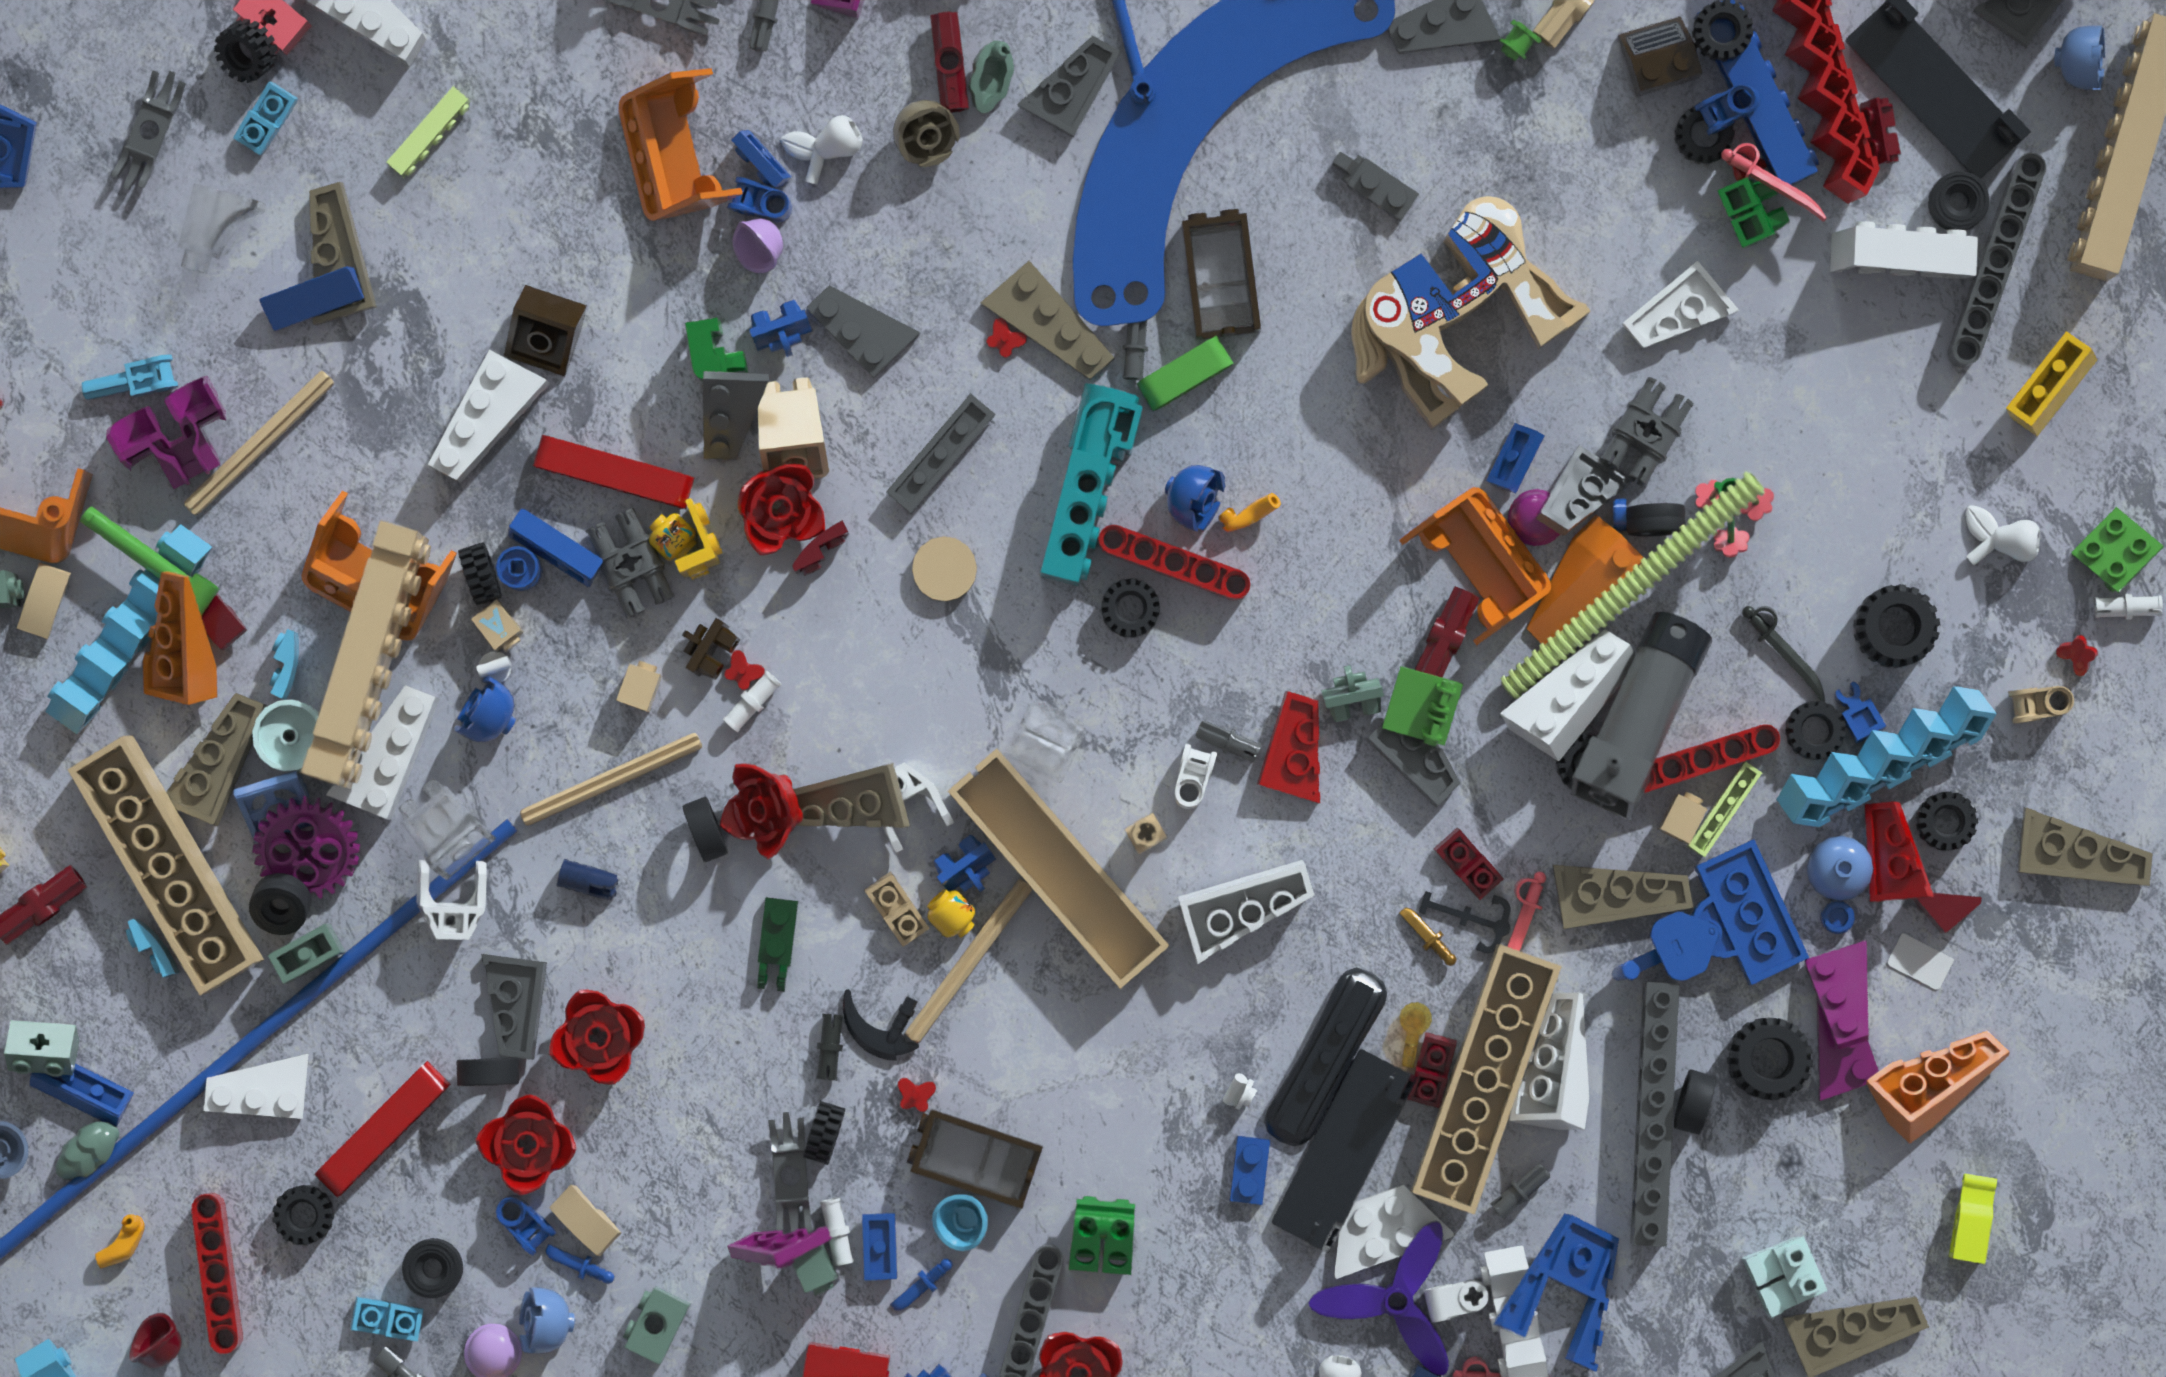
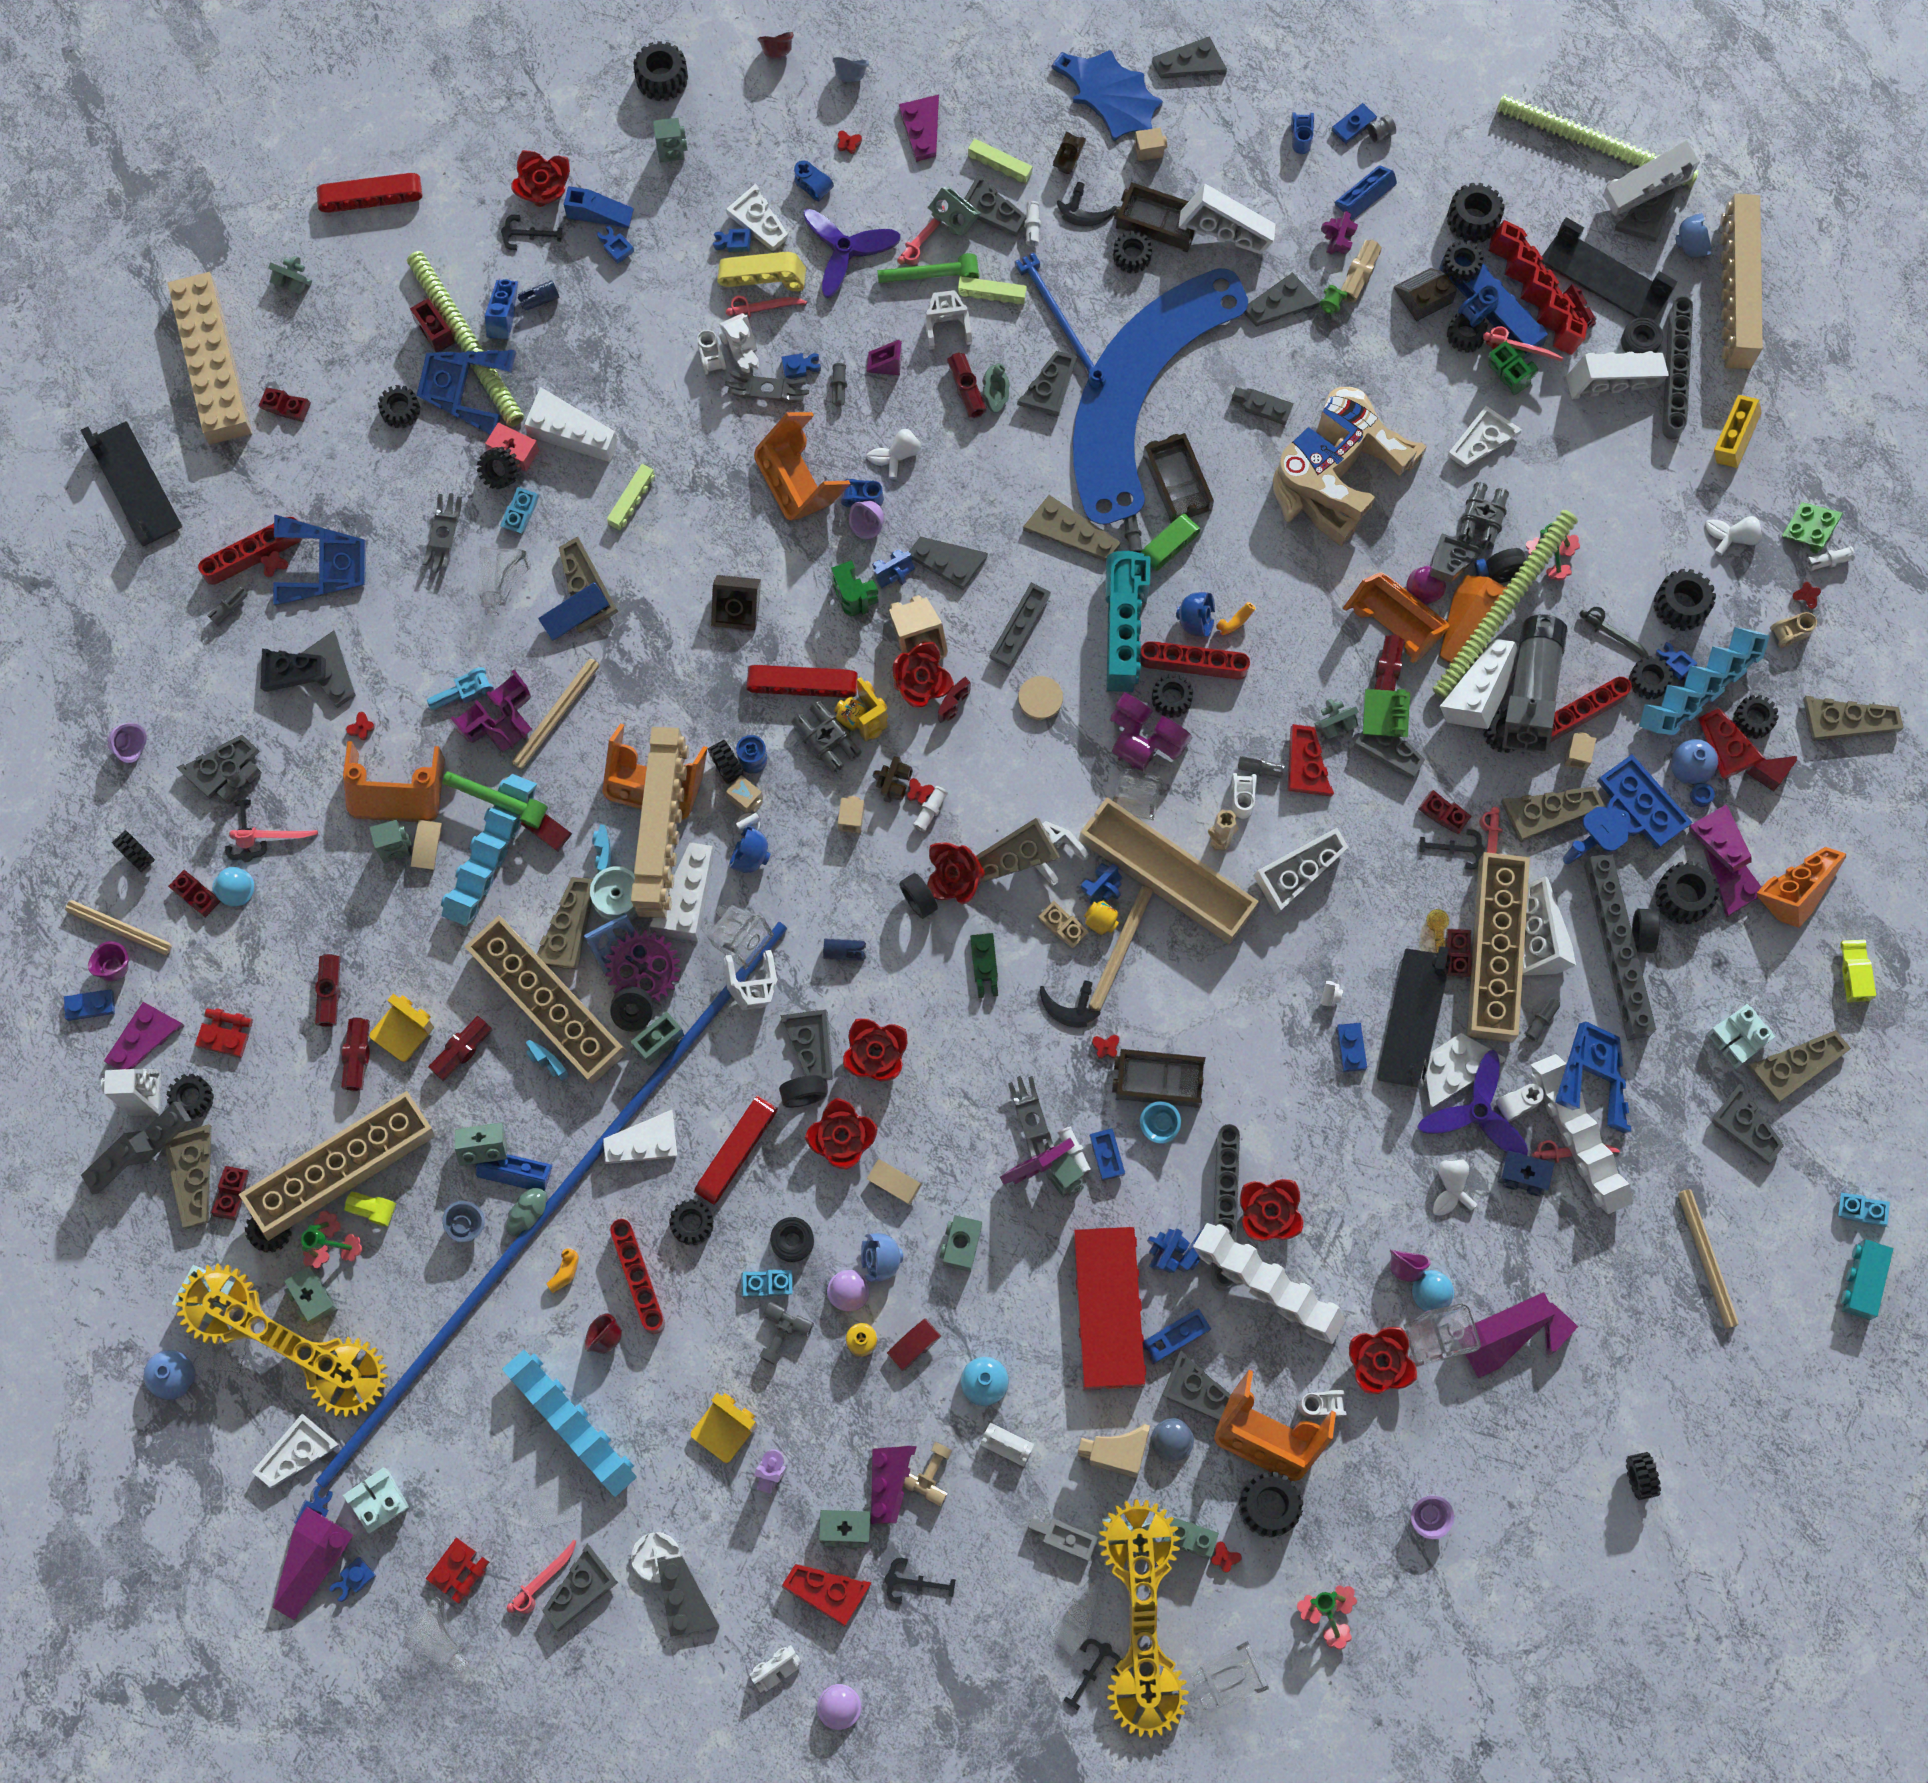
camera: 15 degrees left, 15 degrees down
(180, 656) = (528, 852): orange wedge -> none
(487, 411) = (709, 656): white wedge -> none
(525, 1224) = (852, 1193): blue piece -> none
(555, 547) = (775, 737): blue slope -> none
(582, 1266) = (899, 1215): blue piece -> none
(610, 779) = (844, 880): tan axle -> none
(728, 410) = (872, 621): dark grey wing -> none
(752, 150) = (848, 463): blue plate -> none
(824, 1132) = (1050, 1081): black tyre -> none
(829, 1047) = (1038, 1026): pearl dark grey pin -> none
(924, 1283) = (1143, 1176): blue piece -> none
(925, 133) = (962, 426): dark tan cylinder -> none
(1005, 339) = (1045, 547): red piece -> none
(1058, 678) = (1134, 748): none -> magenta piece
(1103, 1221) = (1260, 1102): green hips -> none
(1325, 1057) = (1383, 961): black piece -> none
(1429, 937) = (1430, 865): pearl gold piece -> none
(1515, 458) = (1402, 549): blue plate -> none
(1724, 809) = (1606, 740): yellowish green piece -> none
(1920, 961) = (1766, 812): white sticker -> none

